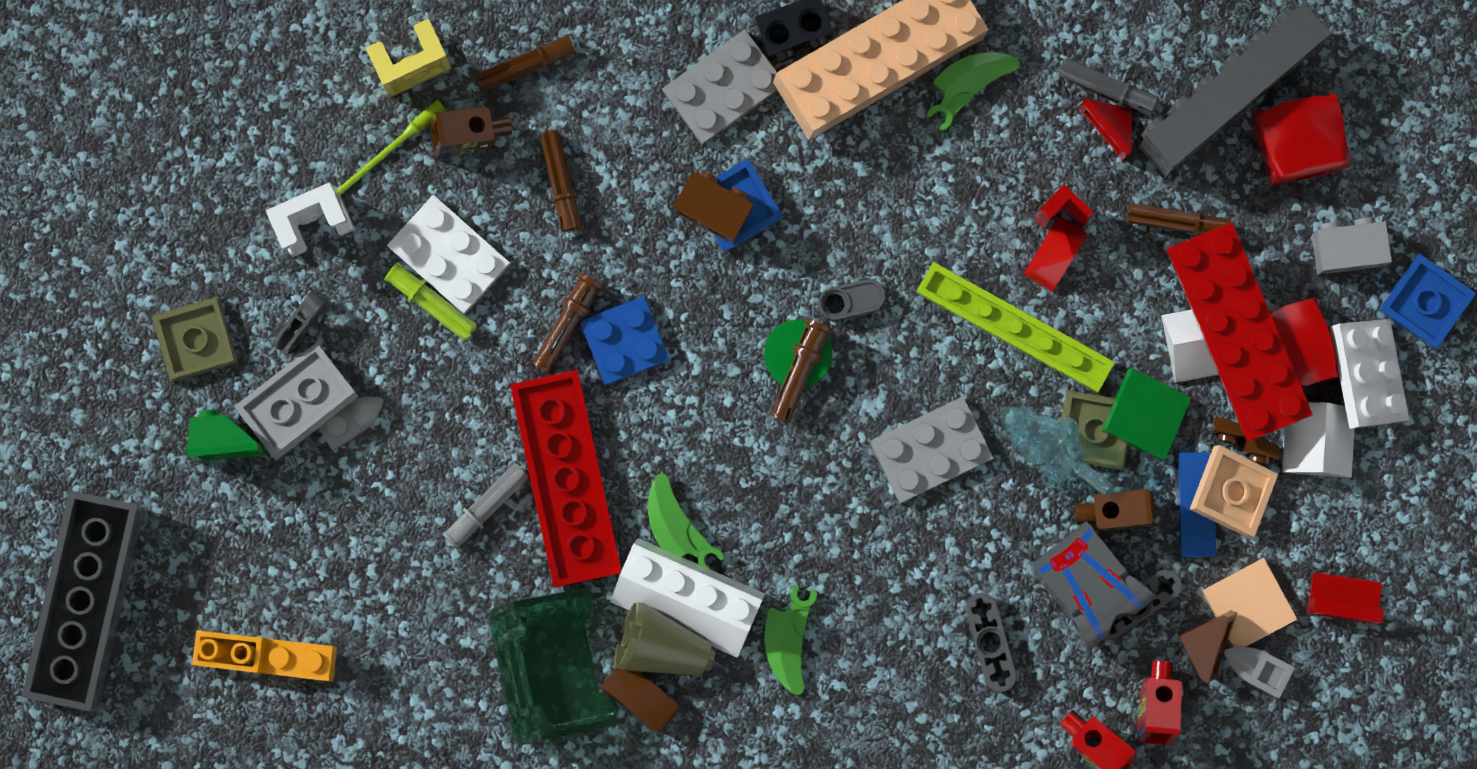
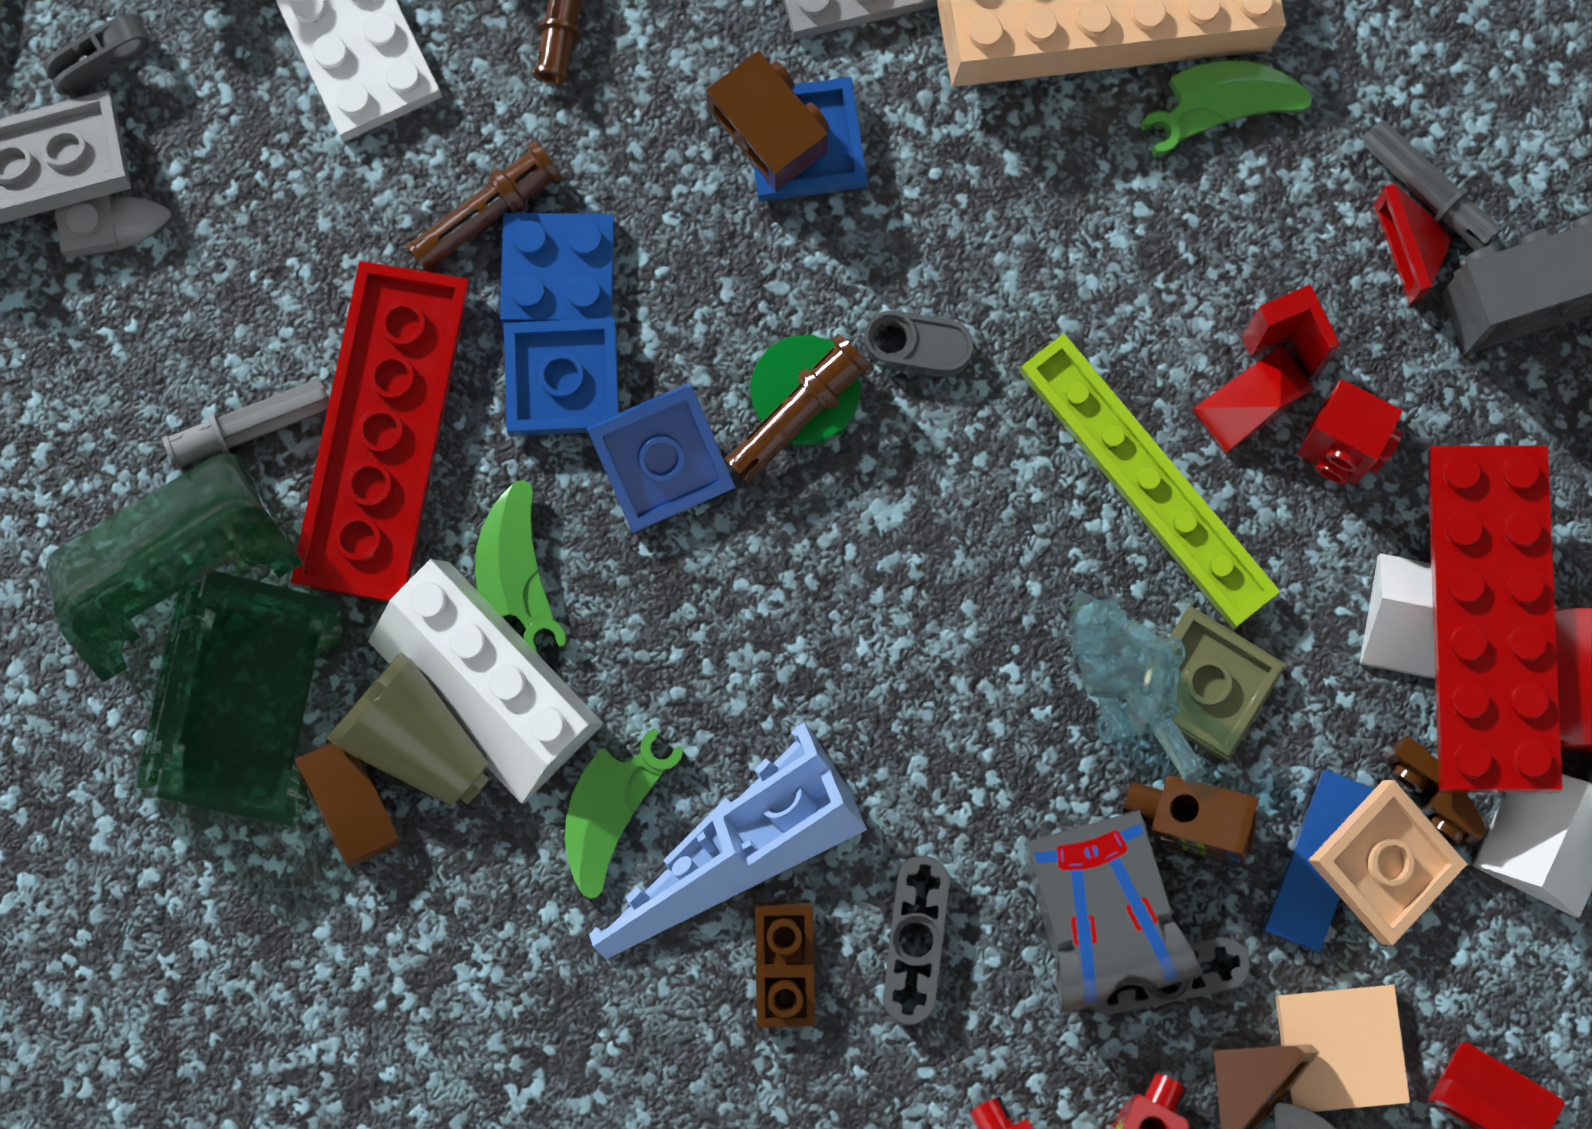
camera: 25 degrees right, 5 degrees down
(430, 301) = (299, 98): lime axle -> none
(477, 601) = (157, 550): none -> clear green windscreen
(655, 404) = (560, 375): none -> blue plate
(733, 429) = (660, 457): none -> blue plate
(886, 608) = (777, 823): none -> light blue wedge
(923, 686) = (784, 965): none -> reddish brown slope
(931, 450) = (946, 612): light grey plate -> none
(1119, 257) = (1351, 434): none -> red brick
(1146, 414) = (1297, 690): green tile -> none
(1173, 219) = (1446, 413): reddish brown axle -> none

